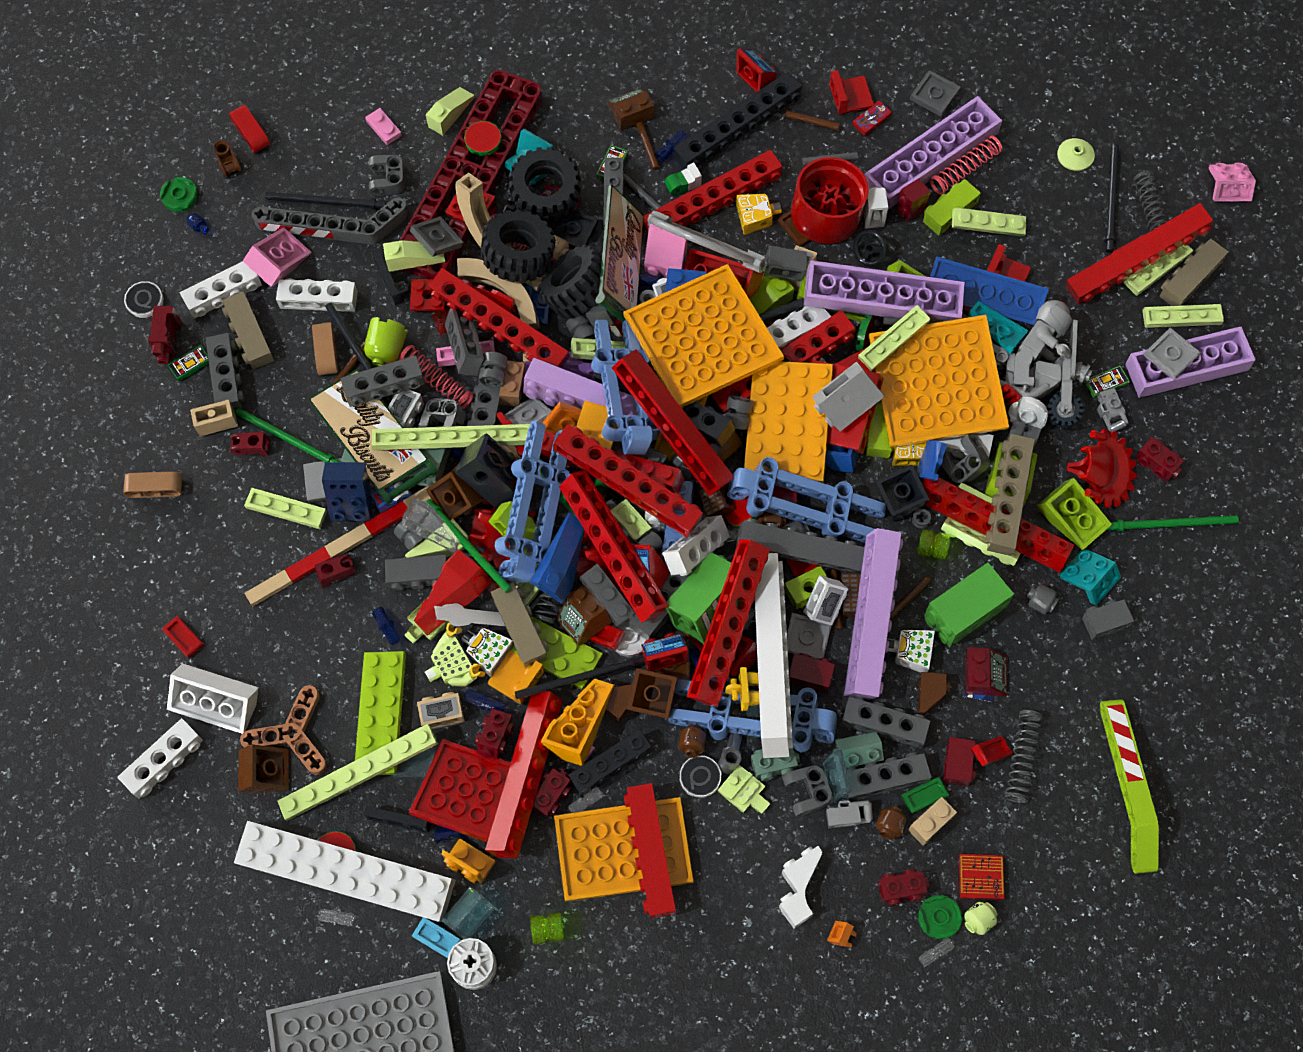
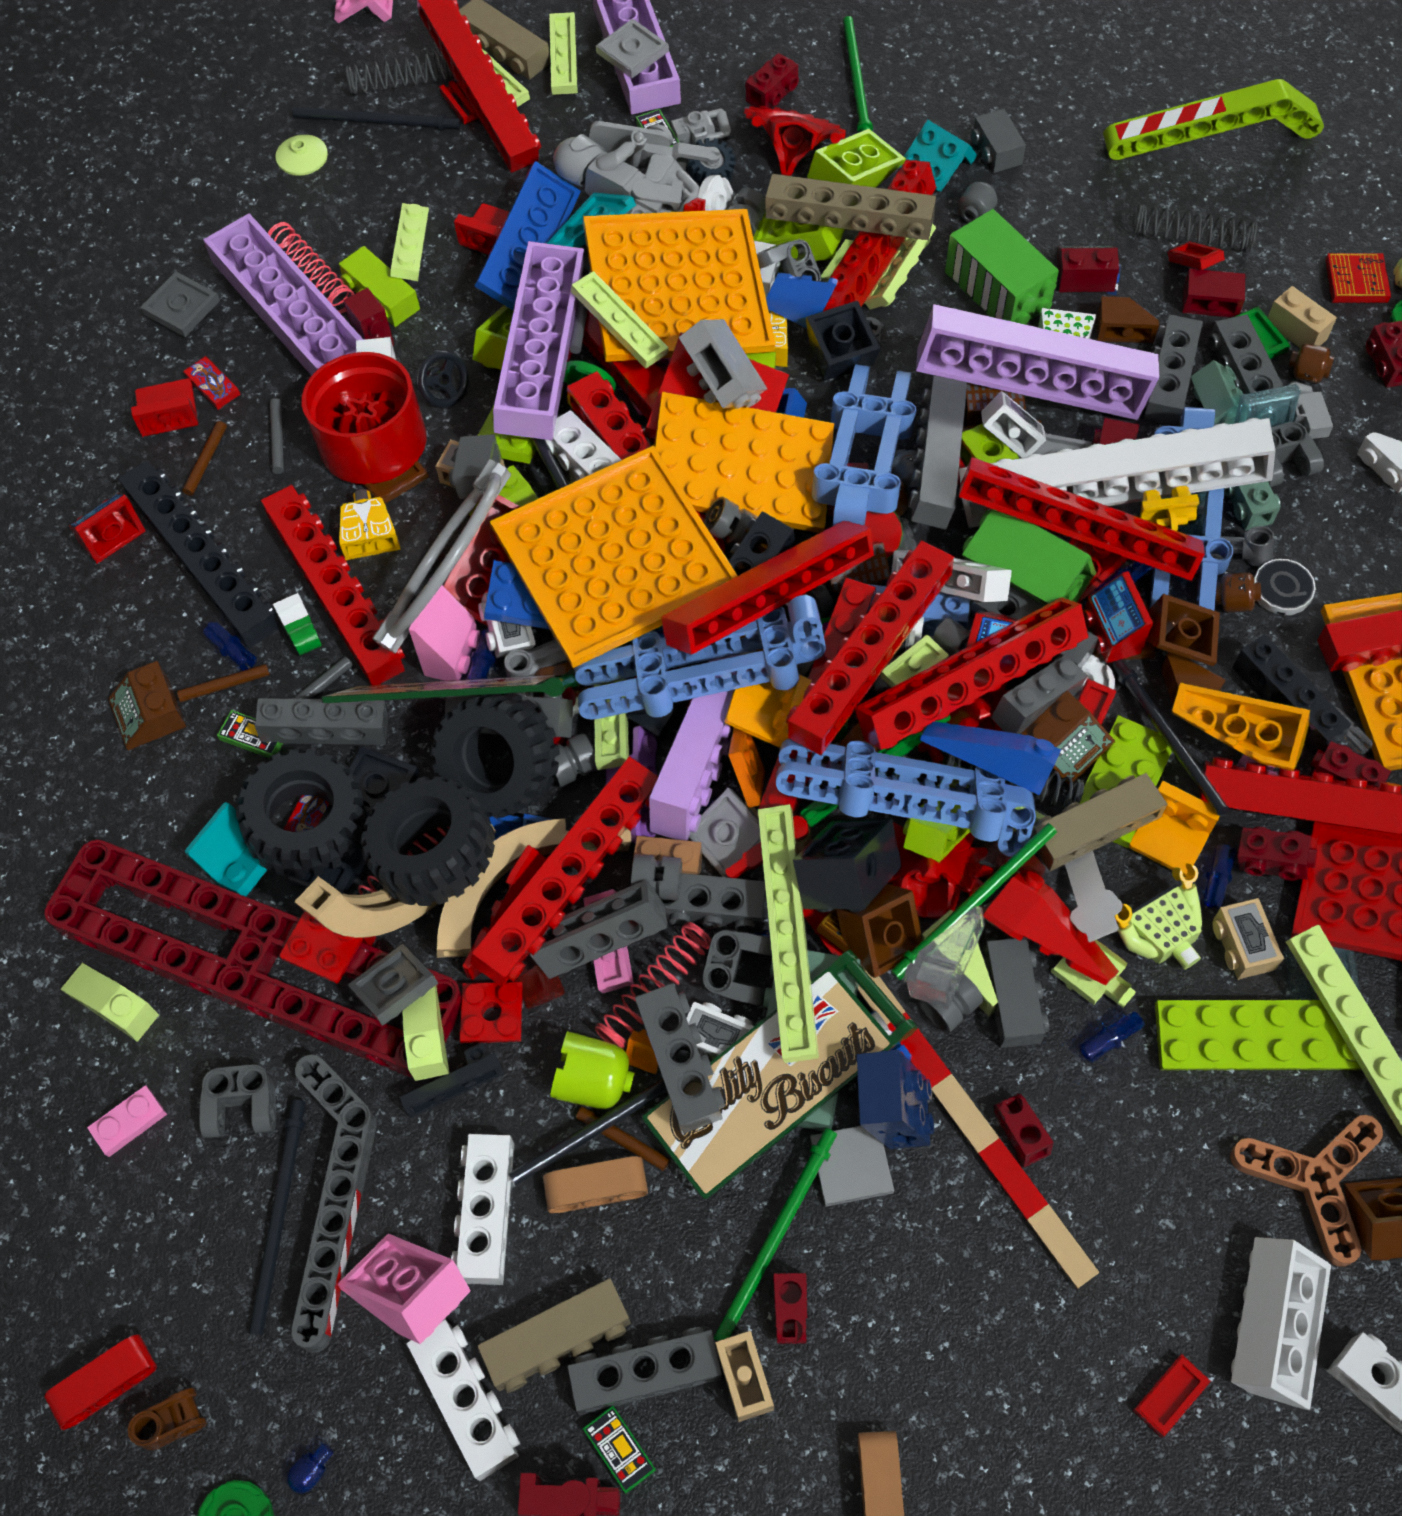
camera: 90 degrees left, 5 degrees down
(285, 508) = (912, 1228): yellowish green plate -> none
(482, 138) = (189, 926): red tile -> none
(487, 649) = (1137, 871): white torso -> none
(743, 790) = (1296, 533): yellowish green piece -> none
(933, 544) = (910, 312): clear neon green wheel -> none

